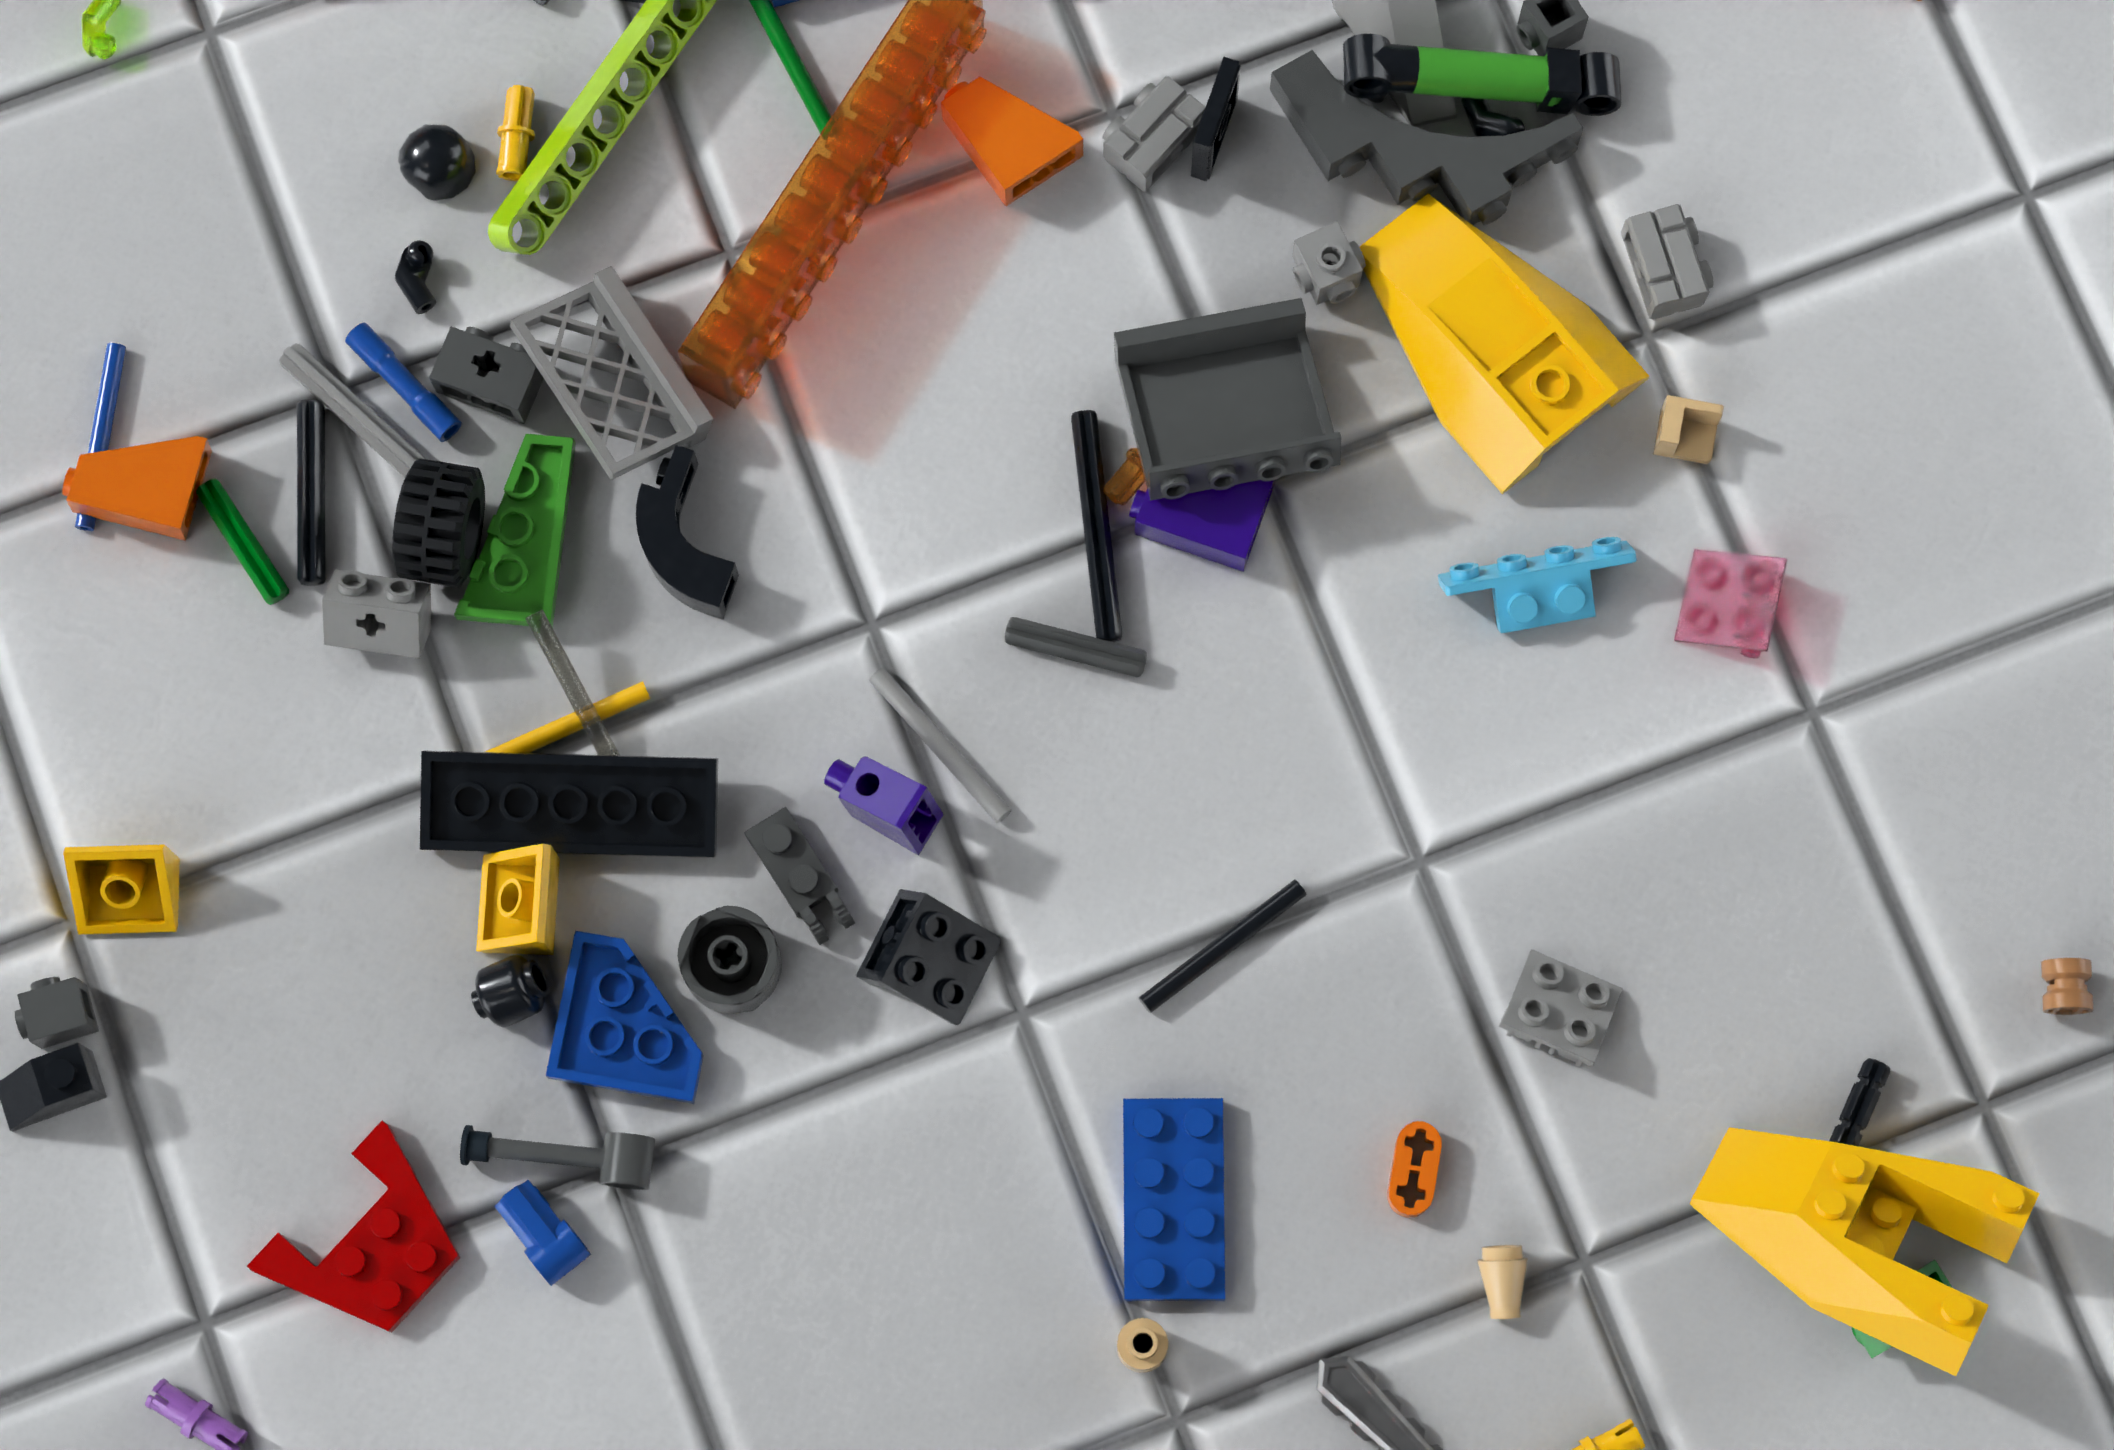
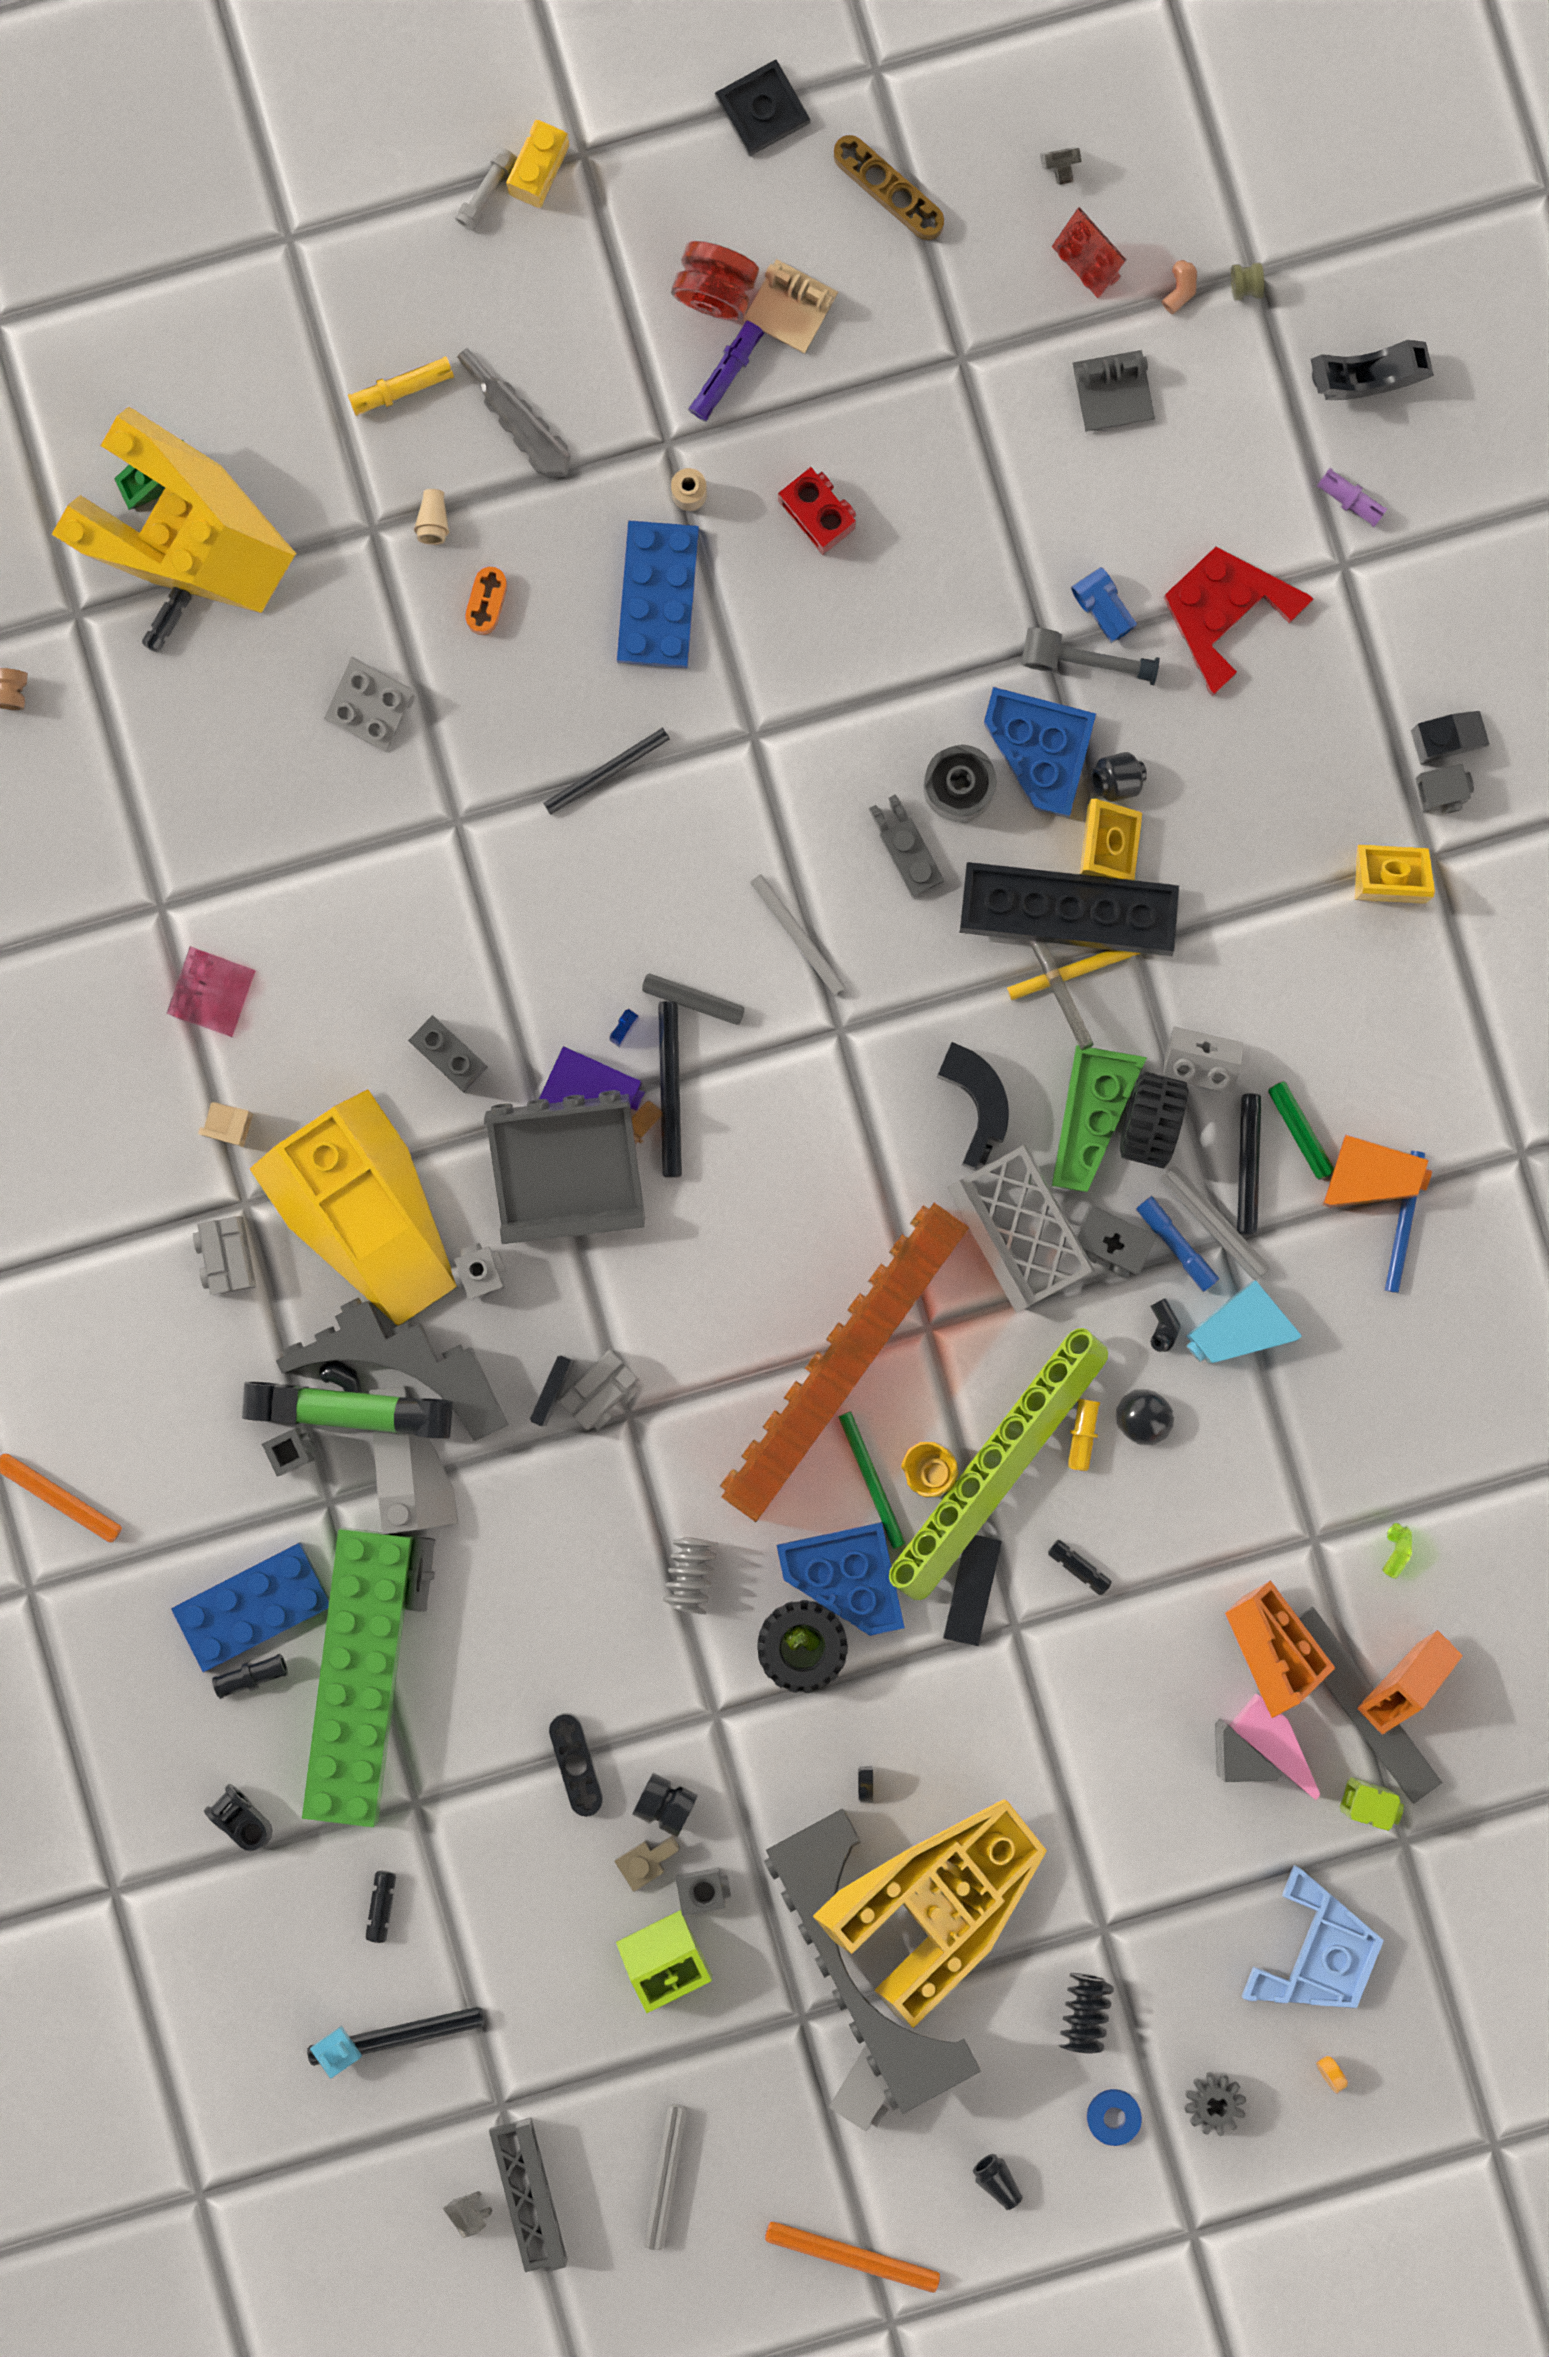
camera: 175 degrees left, 10 degrees up
(313, 278) = (1241, 1326): none -> medium azure slope
(712, 68) = (930, 1469): none -> yellow hair
(886, 801) = (827, 883): dark purple torso -> none
(929, 955) = (818, 779): black bracket -> none
(966, 1325) = (809, 515): none -> red brick
(1008, 137) = (712, 1396): orange slope -> none
(1164, 602) = (626, 1024): none -> clear blue tile
(1400, 542) = (448, 1053): none -> dark grey brick
(1540, 587) = (347, 1016): medium azure bracket -> none

